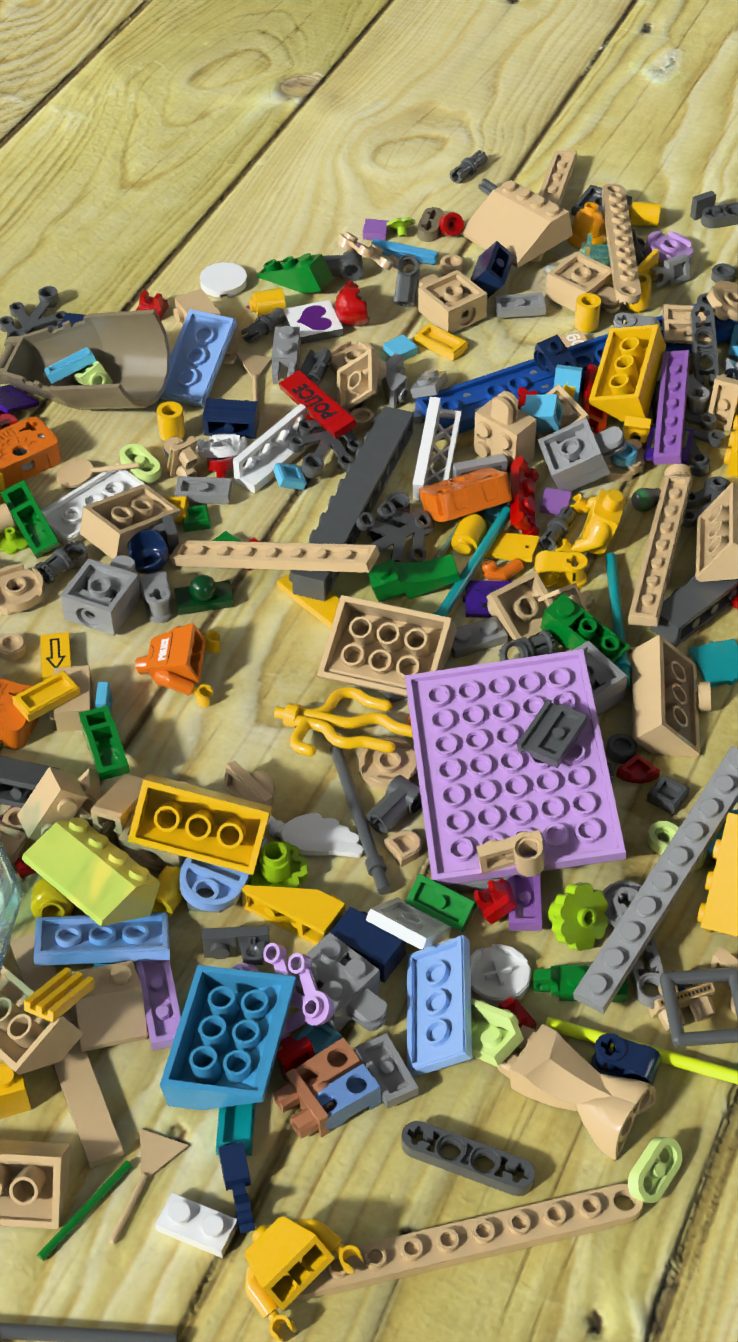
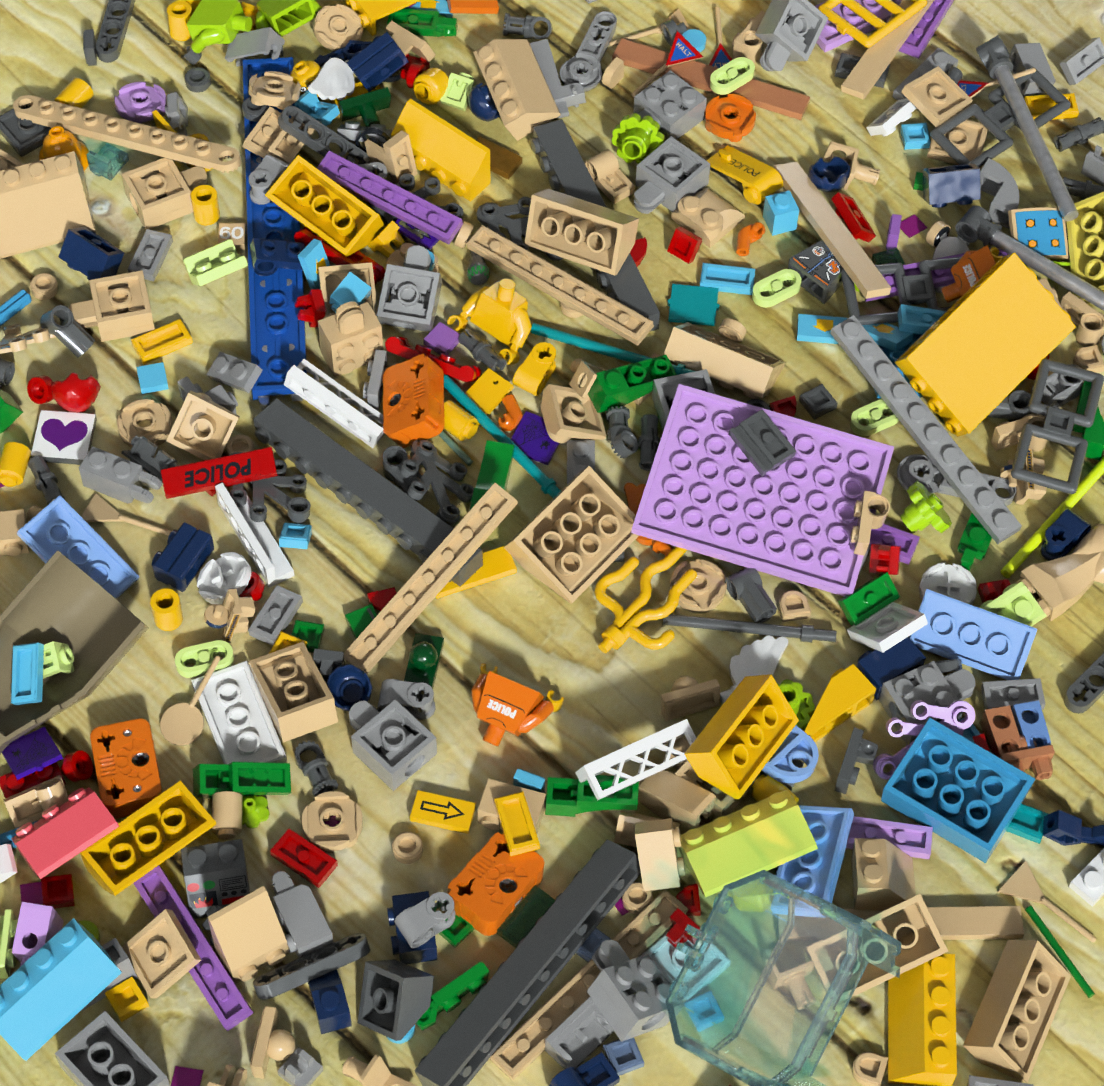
camera: 70 degrees left, 10 degrees up
(55, 991) = (881, 877): yellow tile -> none
(141, 742) = (632, 752): none -> white fence
(391, 995) = (949, 665): none -> dark grey tile
(528, 334) = (214, 263): none -> yellowish green bracket

